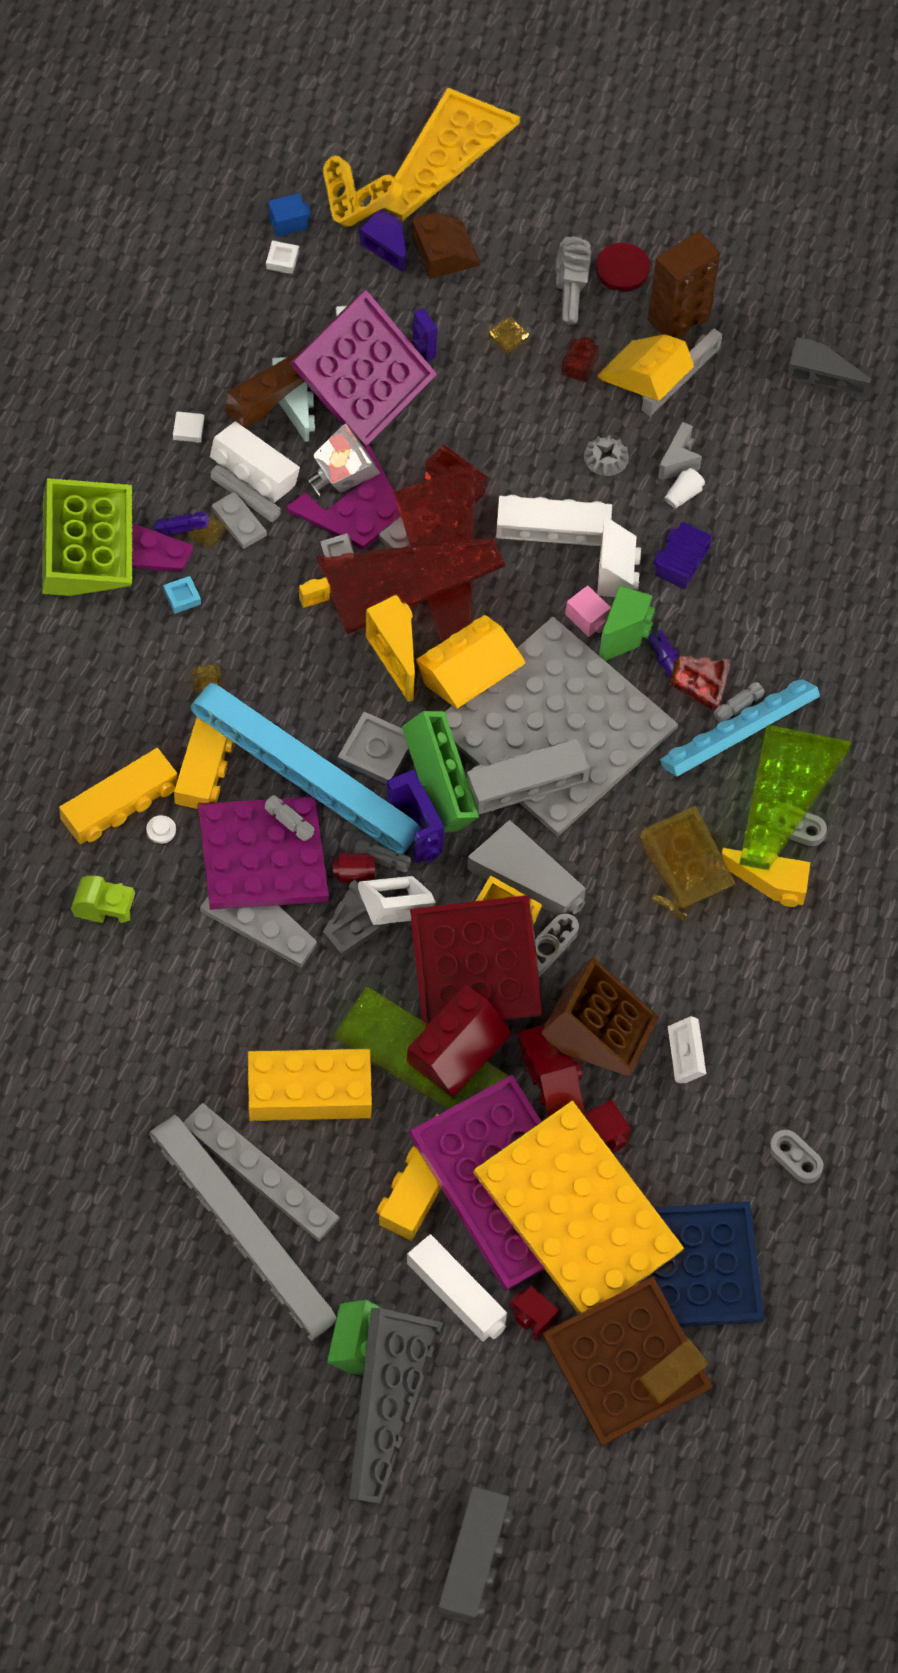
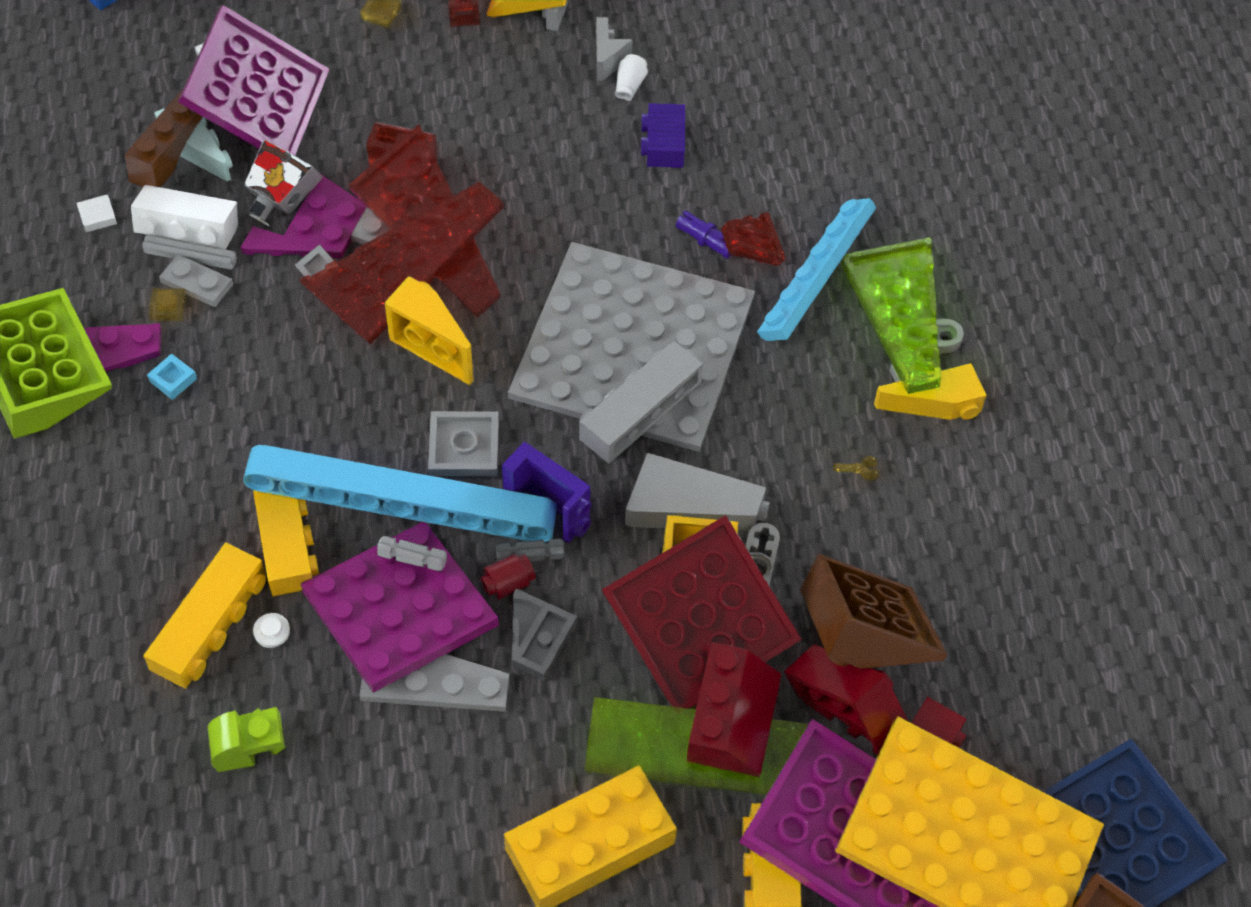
camera: 25 degrees left, 5 degrees down
(182, 523) = (137, 305): dark purple axle -> none
(204, 675) = (239, 446): clear yellow plate -> none
(282, 257) = (116, 24): white plate -> none
(314, 592) = (314, 316): yellow plate -> none
(393, 909) = (573, 603): white tile -> none
(424, 335) = (300, 31): dark purple plate -> none
(440, 769) = (534, 419): bright green brick -> none
(469, 662) = (516, 316): yellow slope -> none
(551, 520) = (522, 153): white brick -> none
(588, 611) = (605, 222): bright pink brick -> none
(607, 466) = (544, 86): light grey gear -> none
(617, 560) = (606, 165): white slope -> none
(627, 623) = (652, 213): bright green slope -> none
(686, 857) = (846, 413): clear yellow slope -> none
(686, 1050) = (965, 608): white plate -> none
(739, 702) = (800, 247): light grey axle -> none
(799, 1155) = (1142, 665): light grey plate -> none

